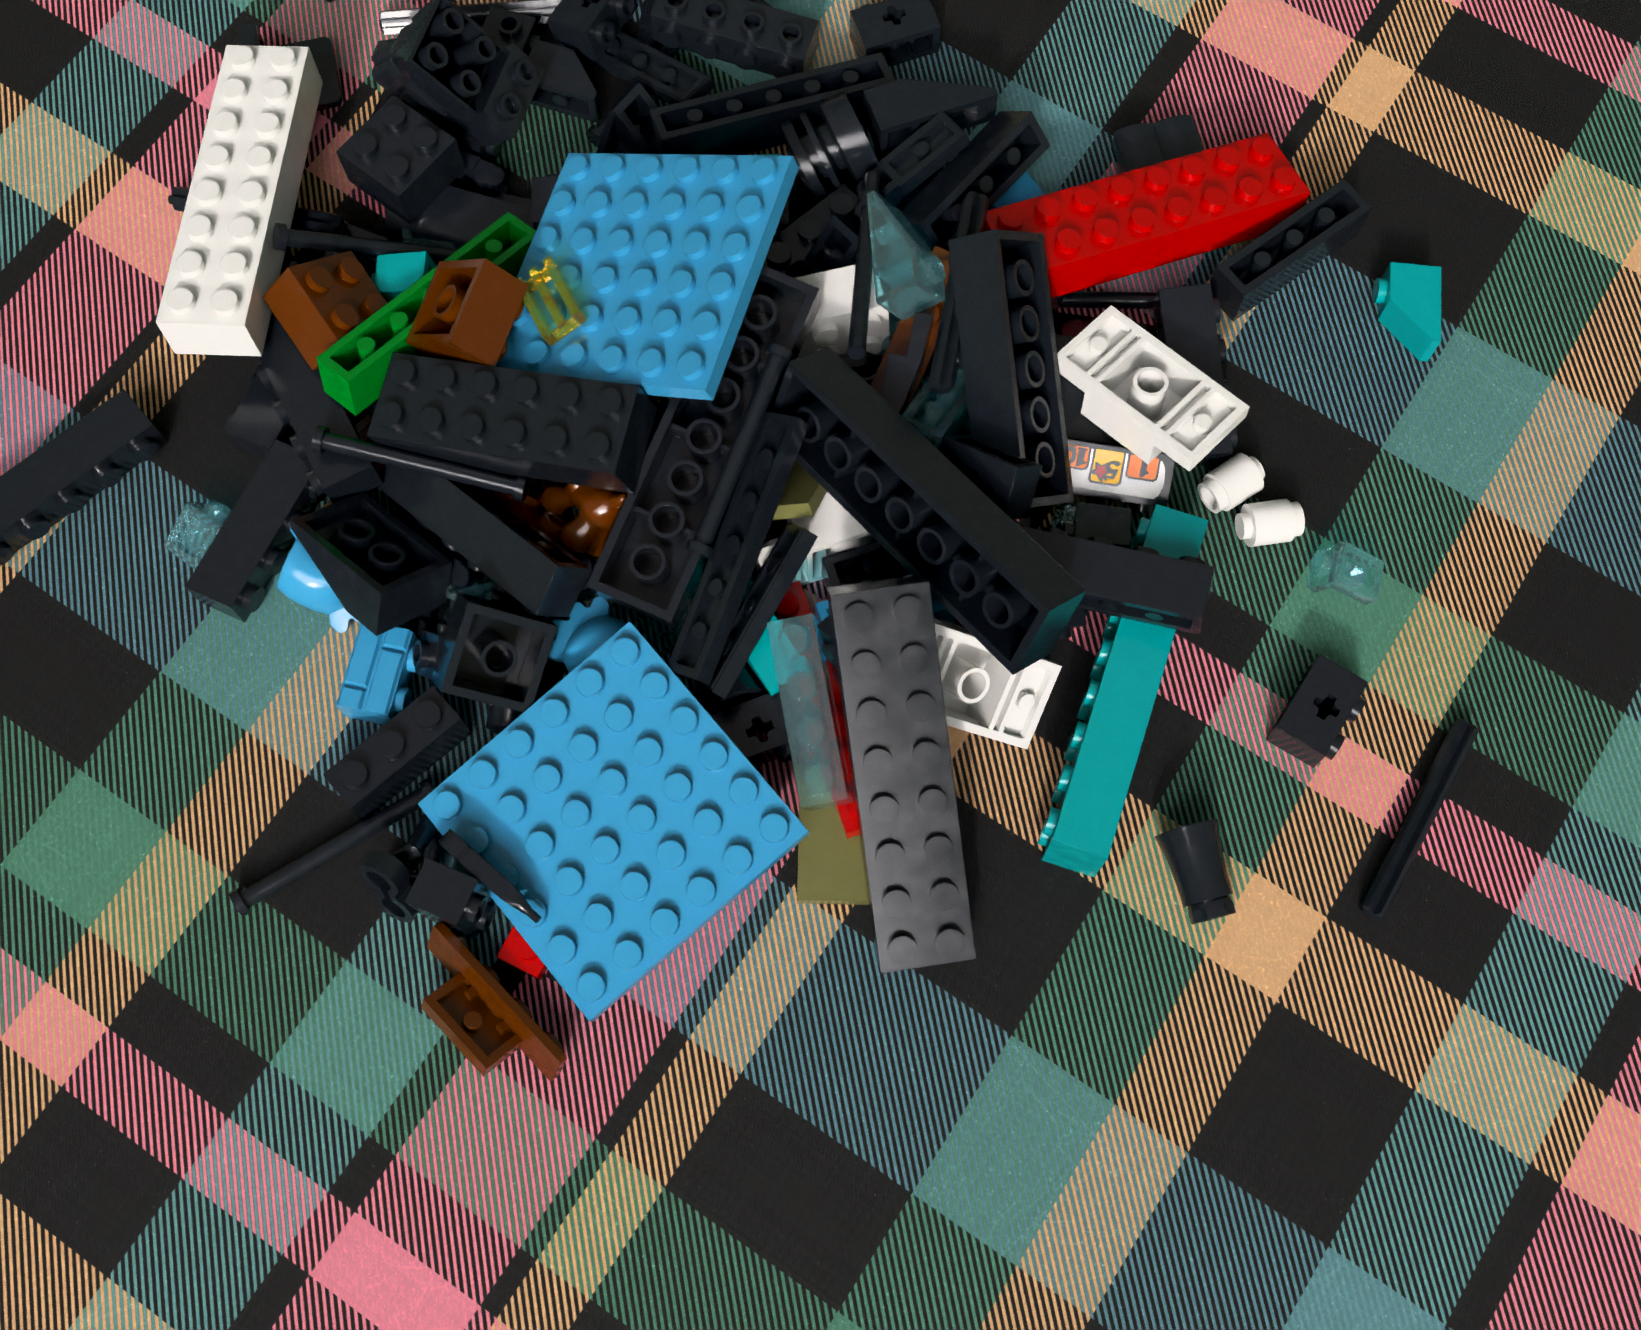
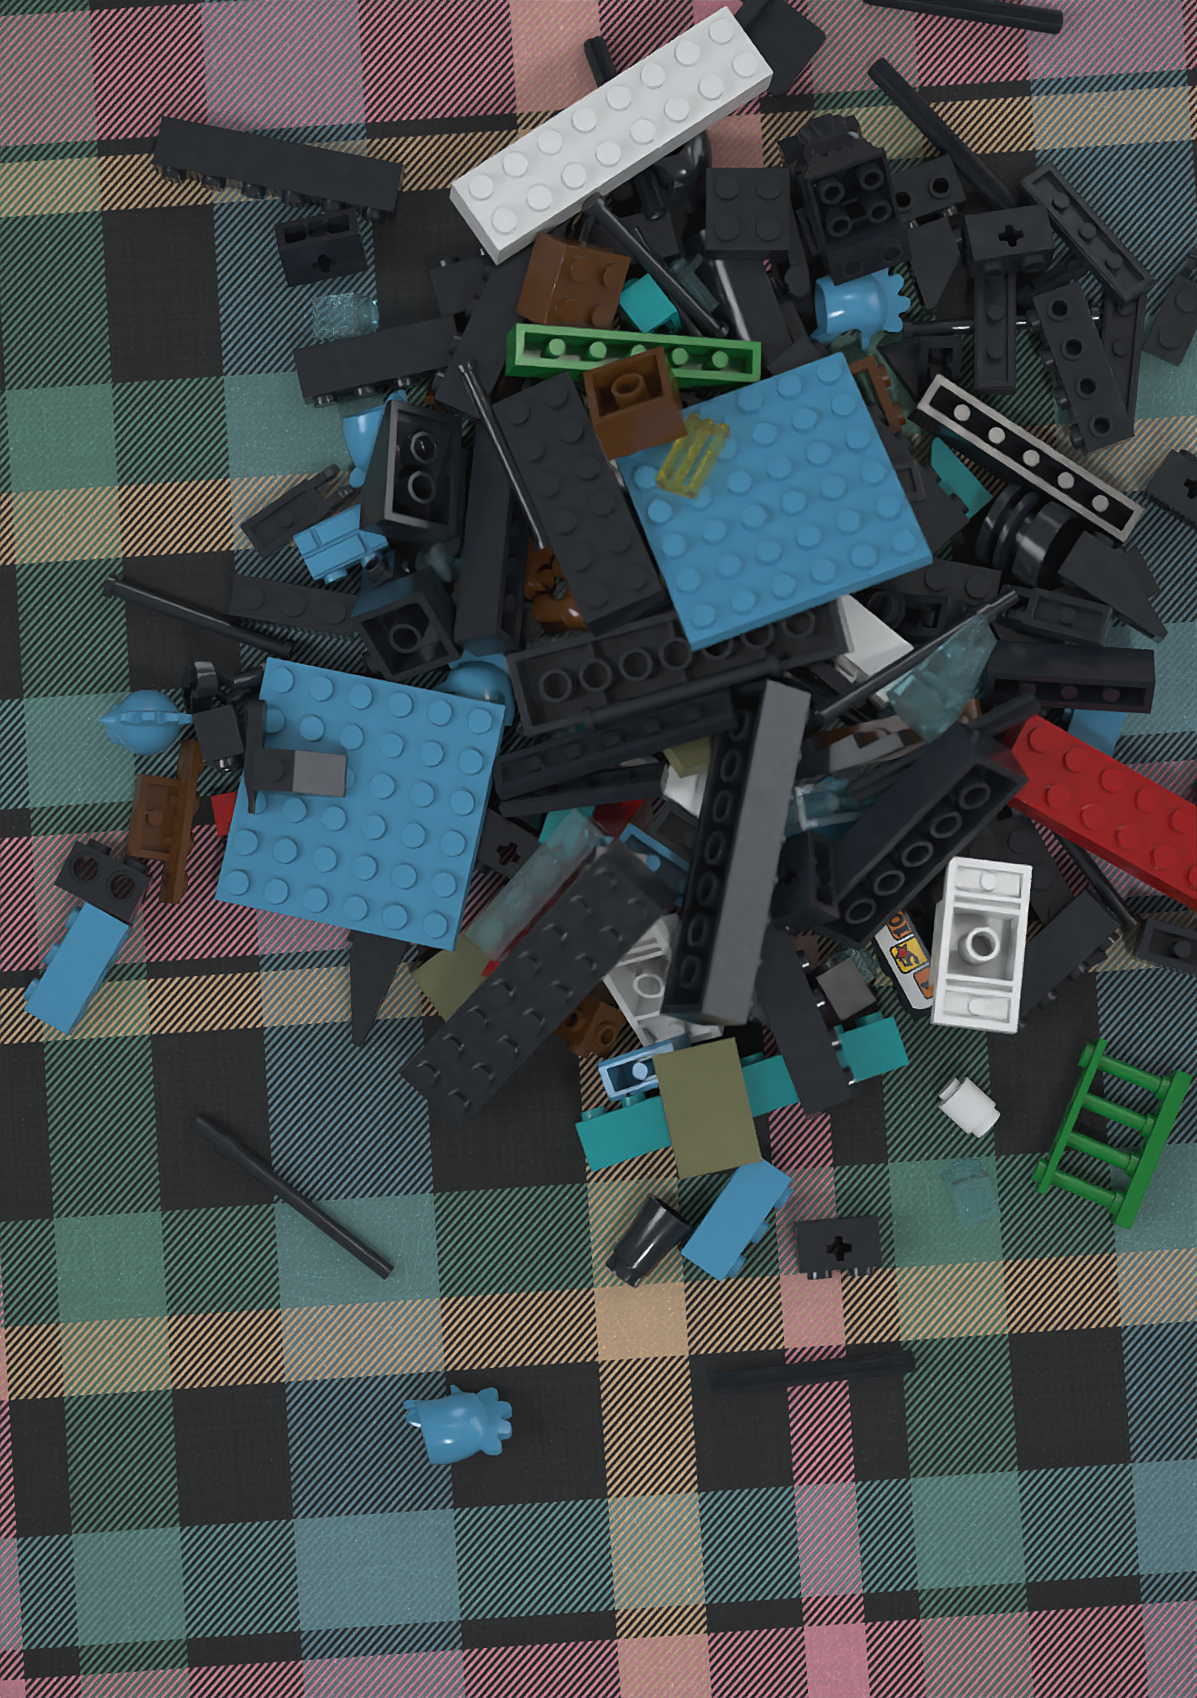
camera: 50 degrees right, 15 degrees up
(108, 511) = (321, 247): none -> black brick
(316, 718) = (293, 513): none -> black hinge
(329, 190) = (684, 172): none -> black piece
(381, 959) = (145, 722): none -> dark azure piece
(493, 1126) = (100, 889): none -> black brick
(537, 845) = (299, 773): none -> black slope
(543, 143) = (861, 305): none -> dark azure piece
(546, 1207) = (76, 967): none -> dark azure brick
(767, 930) = (372, 971): none -> black slope
(827, 1192) = (229, 1146): none -> black bar
(974, 774) = (591, 1028): none -> reddish brown brick
(1043, 749) = (635, 1070): none -> dark azure brick
(1125, 712) = (707, 1108): none -> olive tile
(1231, 483) = (979, 1055): white brick -> none
(1231, 777) = (737, 1218): none -> dark azure brick
(1257, 1173) = (461, 1424): none -> dark azure piece
(1407, 405) = (1137, 1166): none -> green fence

